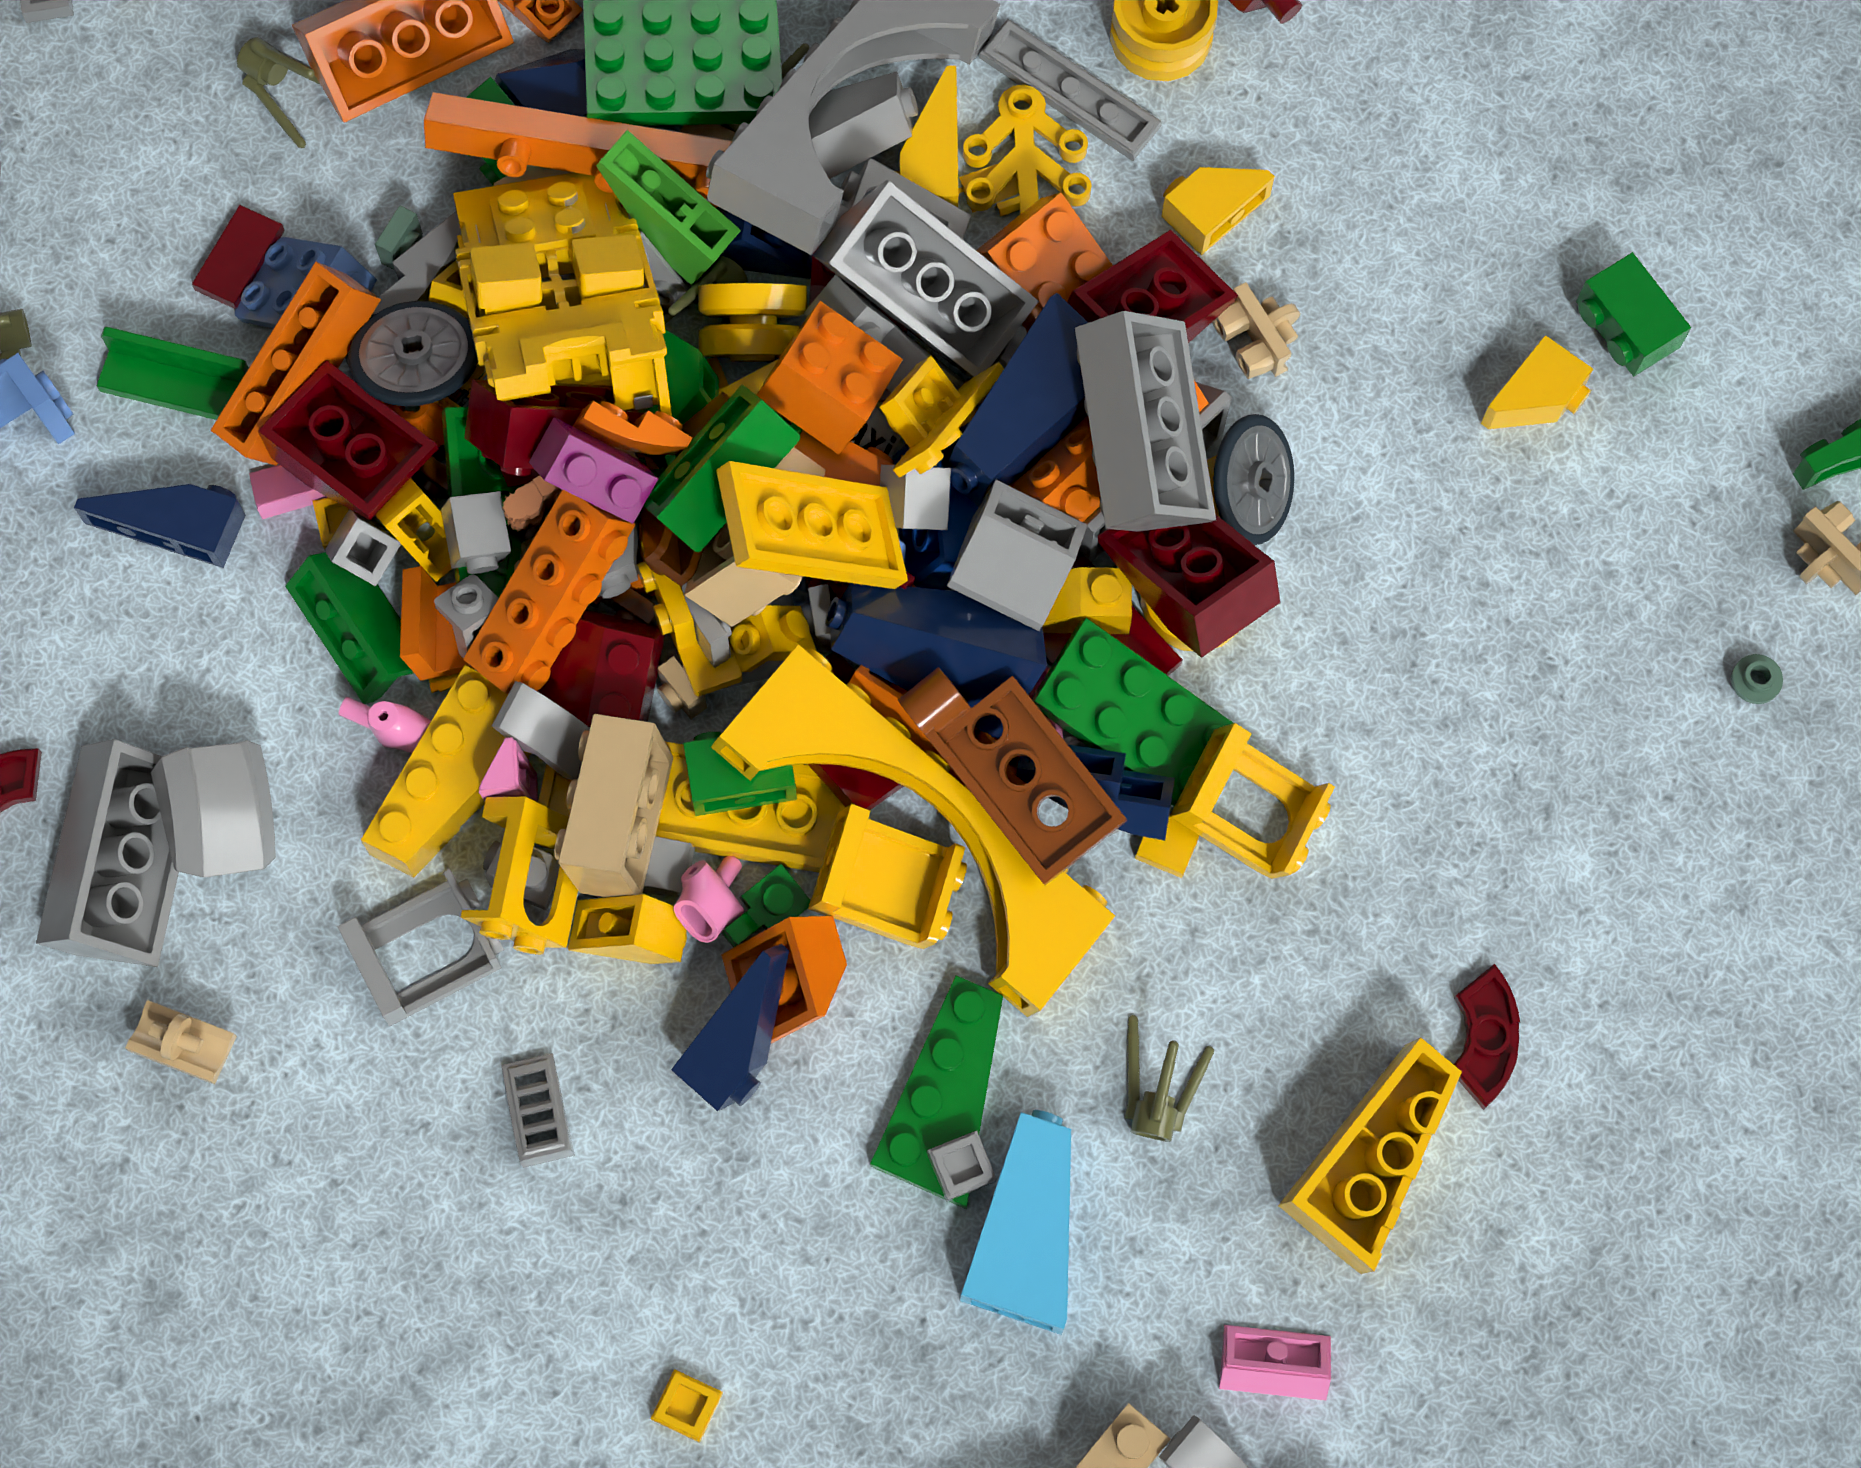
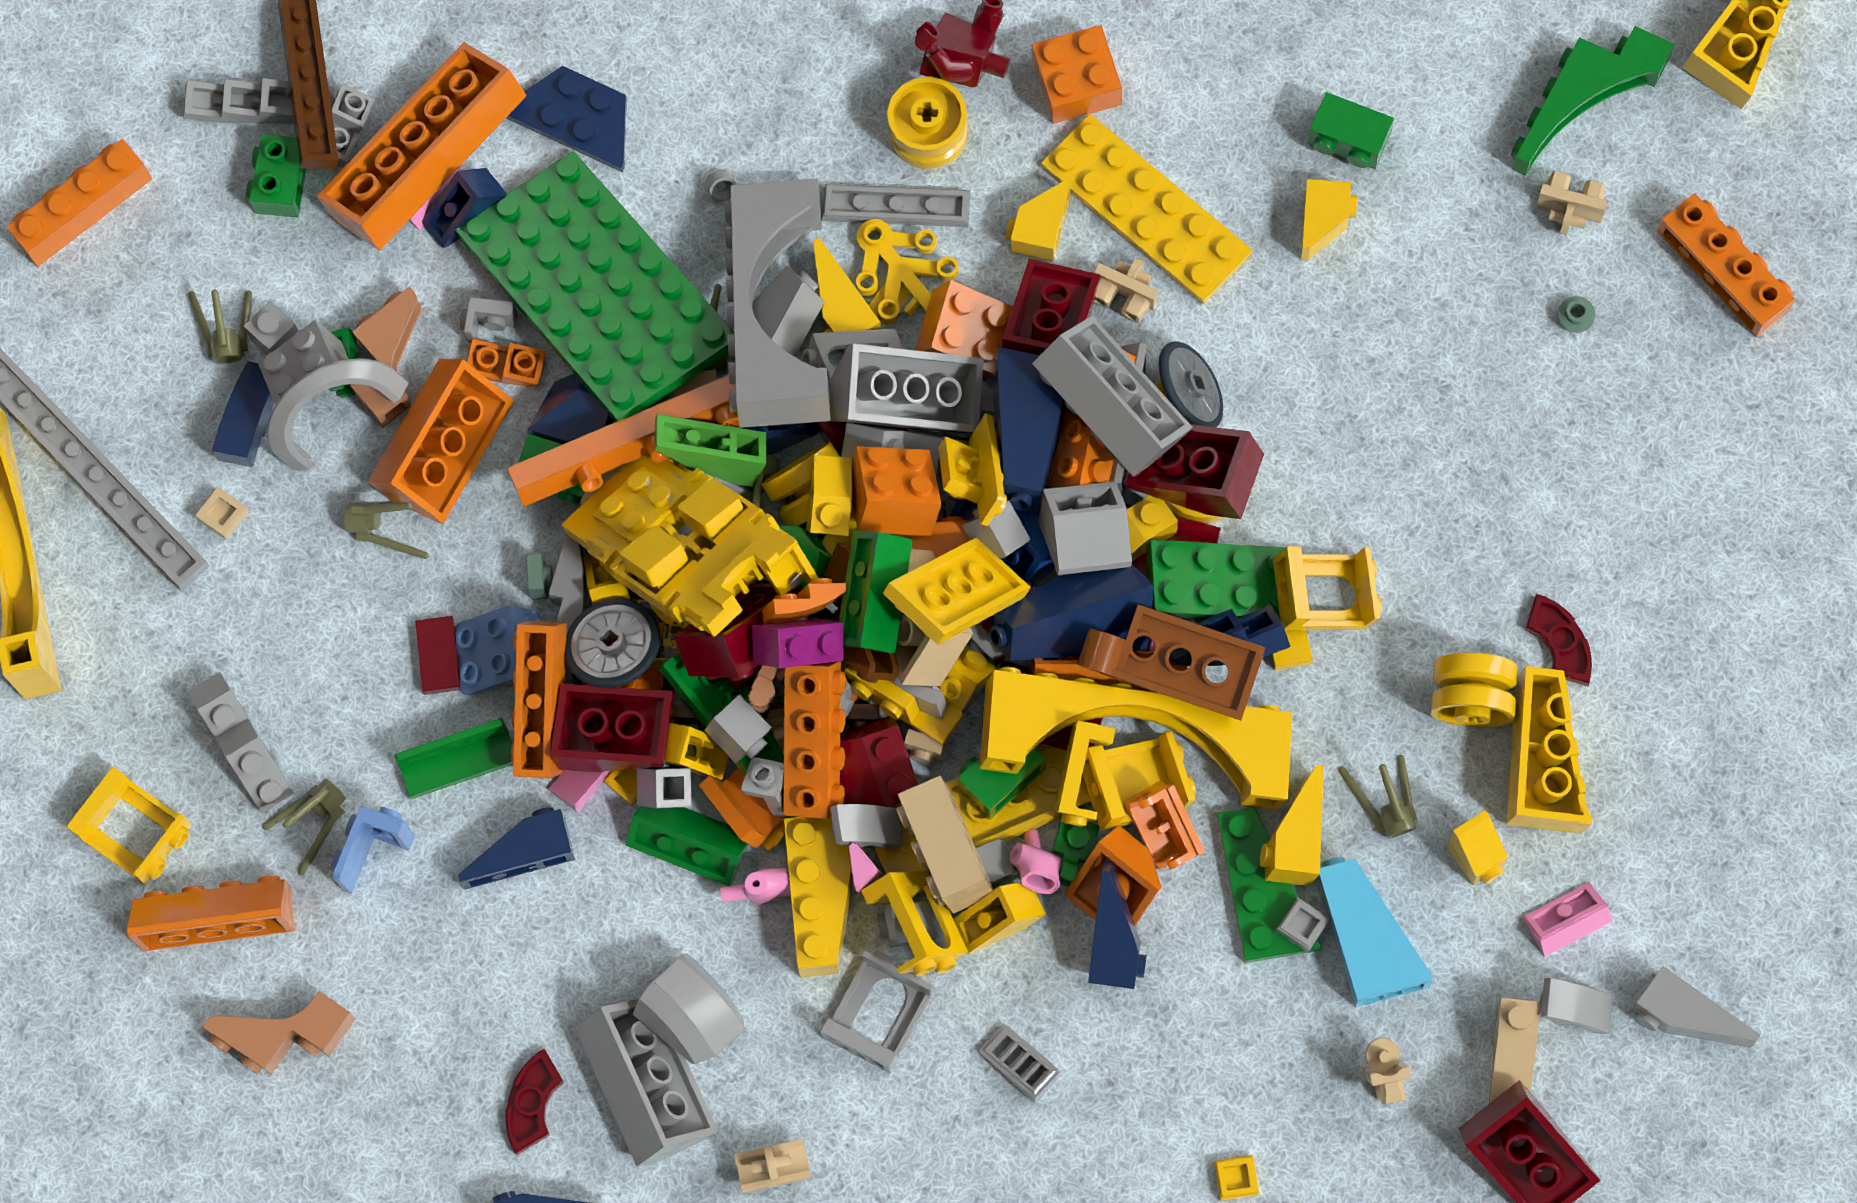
camera: 25 degrees left, 0 degrees up
(755, 337) = (830, 495): none -> yellow slope
(814, 817) = (1080, 736): none -> yellow panel
(880, 949) = (1164, 825): none -> orange hinge
(936, 1398) = (1385, 1070): none -> tan hips
(1016, 1066) = (1295, 845): none -> yellow slope
(1222, 1213) = (1478, 849): none -> yellow slope
(1342, 1026) = (1474, 690): none -> yellow wheel
(1344, 262) = (1147, 208): none -> yellow plate
(1365, 67) = (1077, 74): none -> orange brick

